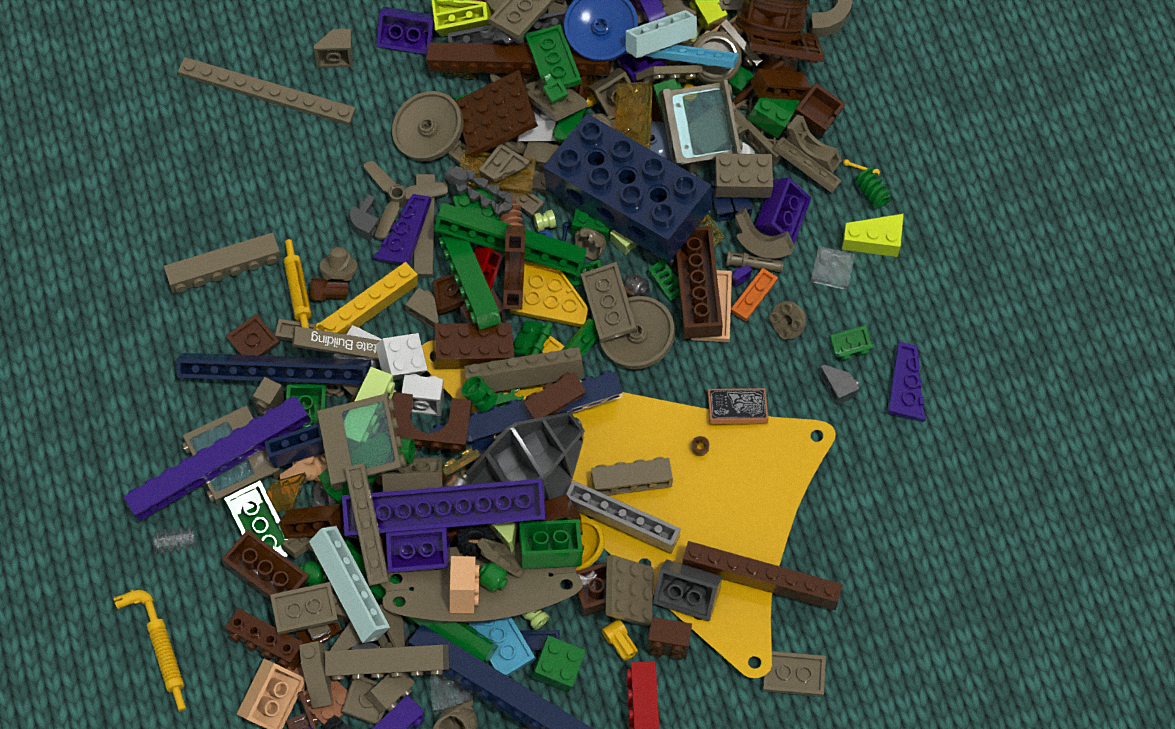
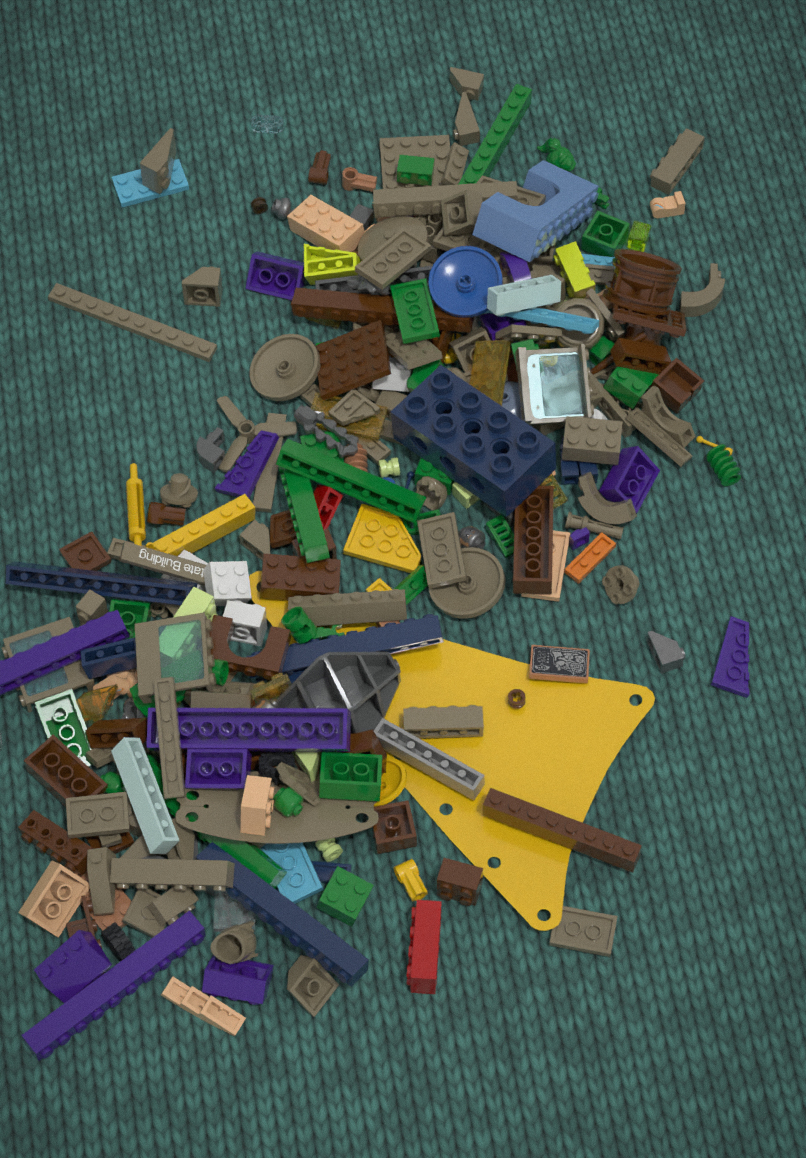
camera: 10 degrees right, 5 degrees down
(222, 263) = (65, 480): dark tan brick -> none
(514, 267) = (348, 526): reddish brown arch -> none
(531, 338) = (361, 578): green plate -> none
(553, 89) = (410, 338): green plate -> none
(555, 396) = (374, 633): reddish brown brick -> none
(629, 590) = (424, 830): dark tan plate -> none
(687, 589) = (484, 837): dark grey slope -> none
(833, 267) = (673, 539): clear plate -> none
(850, 342) = (682, 612): green bracket -> none
(874, 235) = (718, 511): neon yellow wedge -> none

